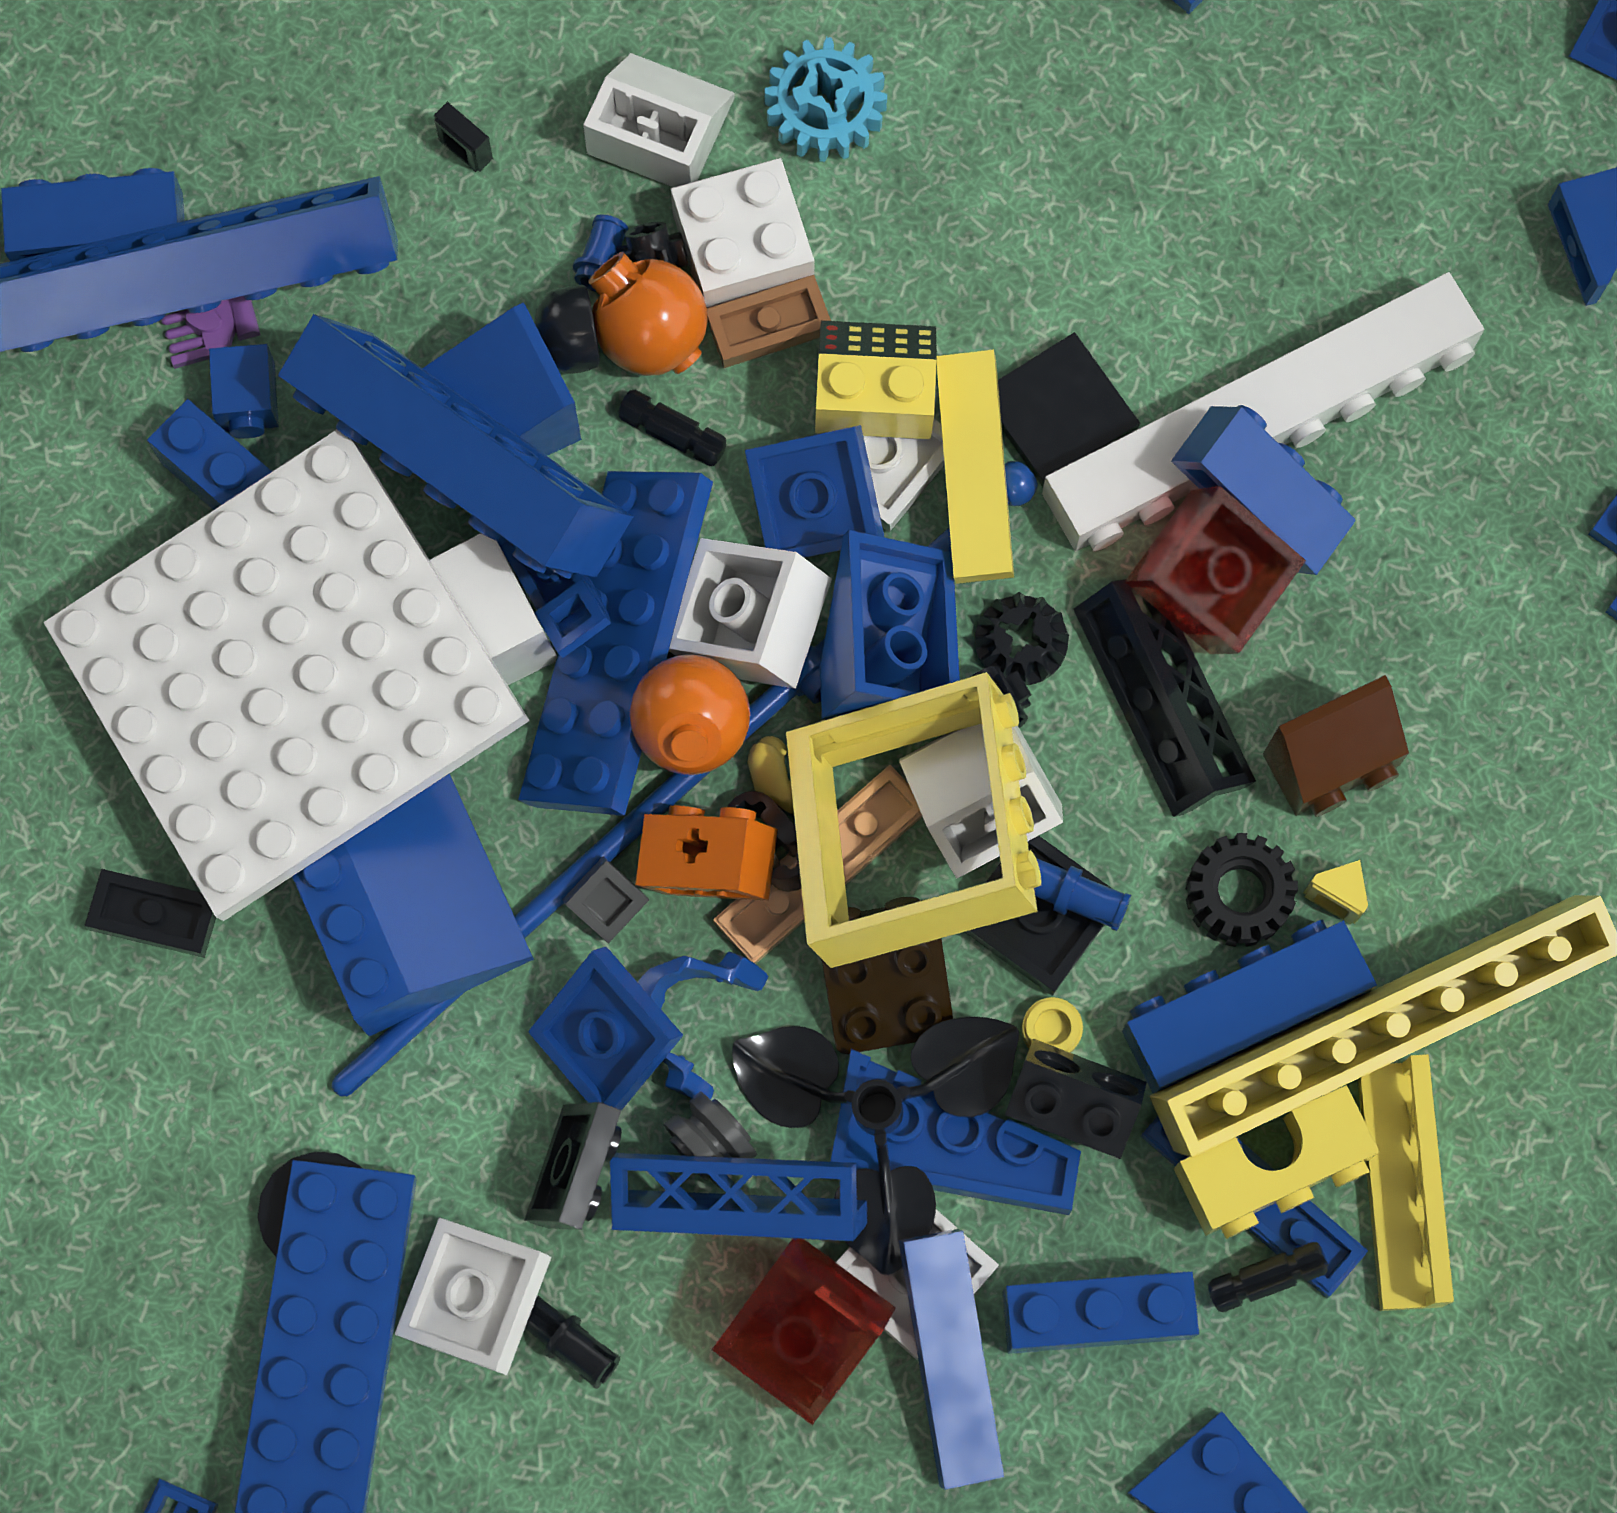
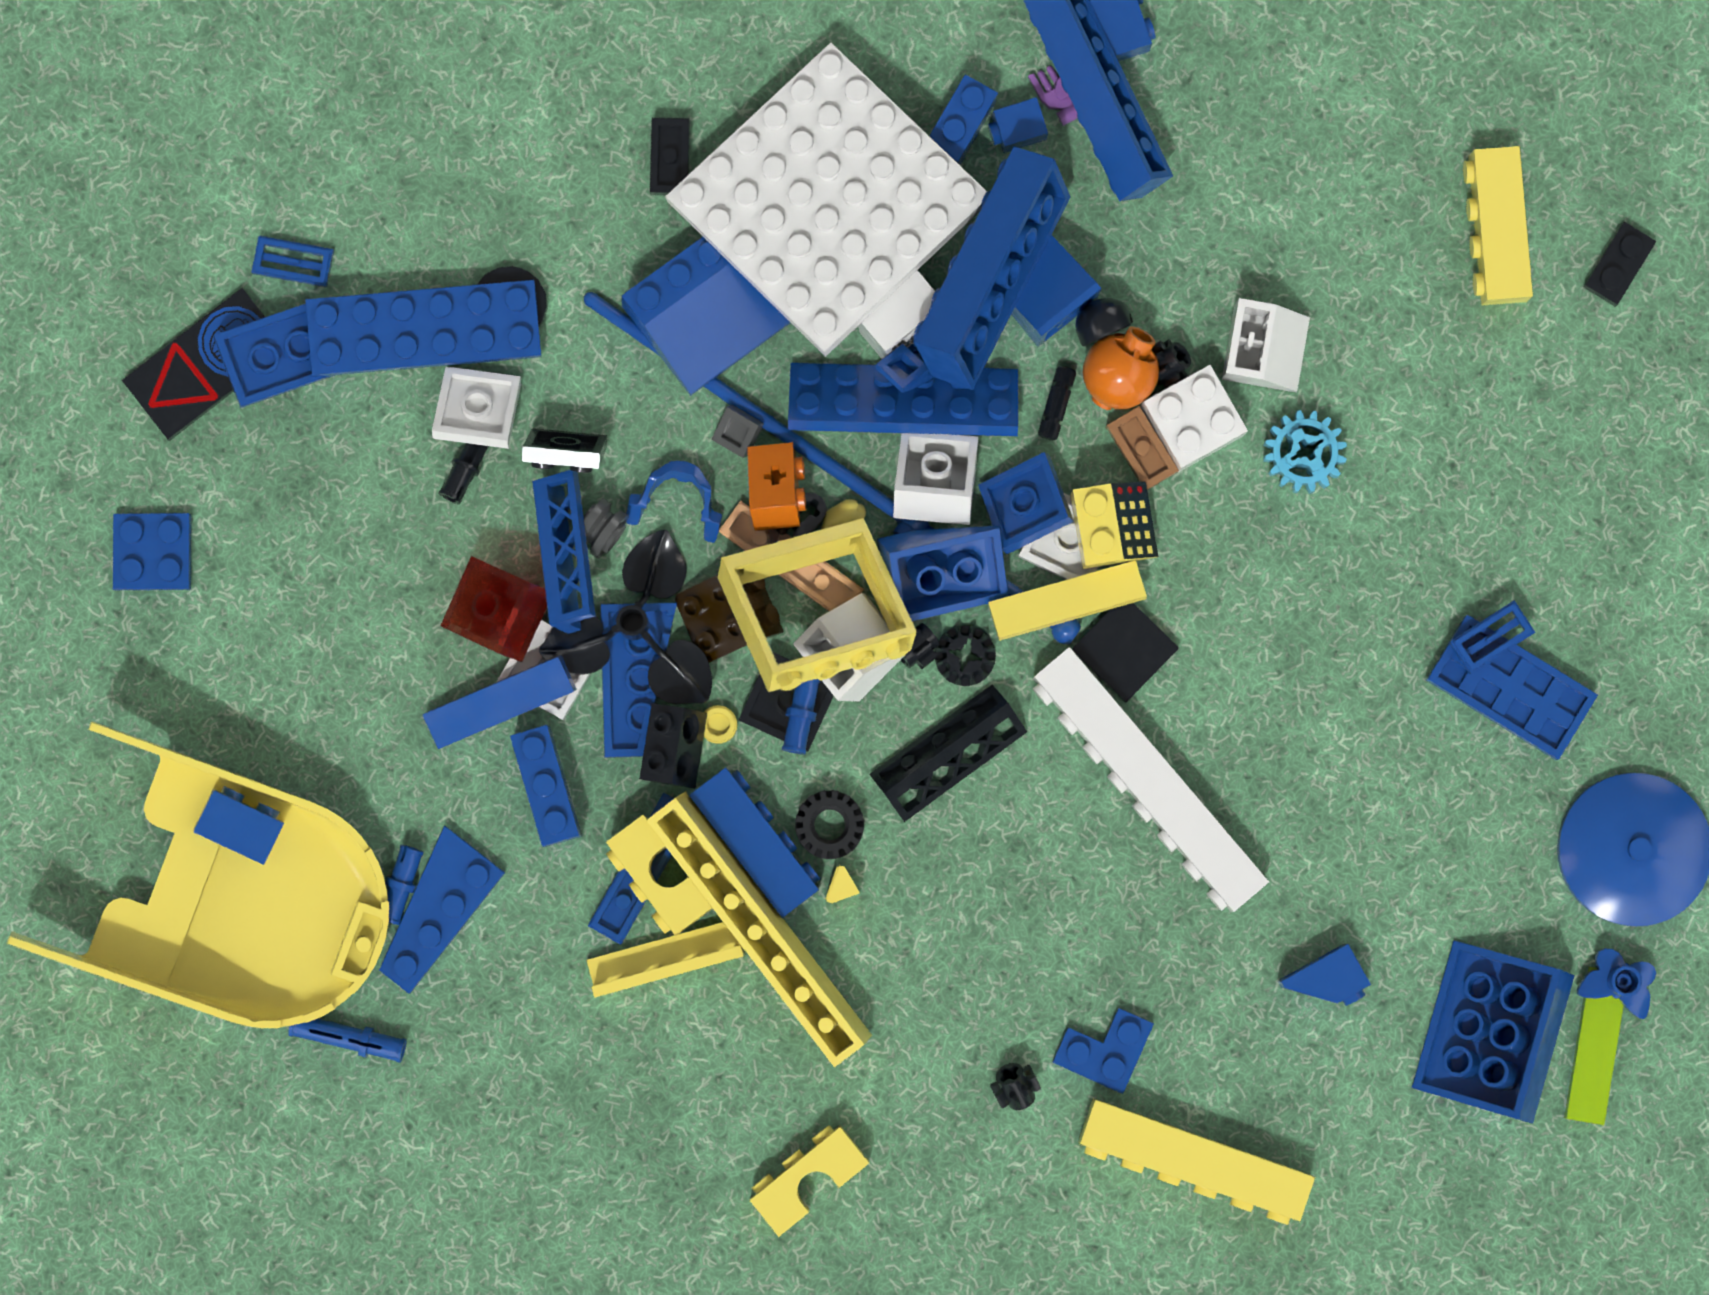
camera: 80 degrees right, 10 degrees up
(463, 137) = (1223, 222): black tile -> none
(601, 246) = (1166, 329): blue pin -> none
(605, 1031) = (651, 449): blue plate -> none
(690, 714) = (859, 455): orange brick -> none
(1215, 570) = (1029, 767): clear red brick -> none
(1267, 479) = (1090, 788): blue brick -> none
(1268, 1277) = (590, 885): black axle -> none
(1338, 748) = (929, 868): reddish brown slope -> none

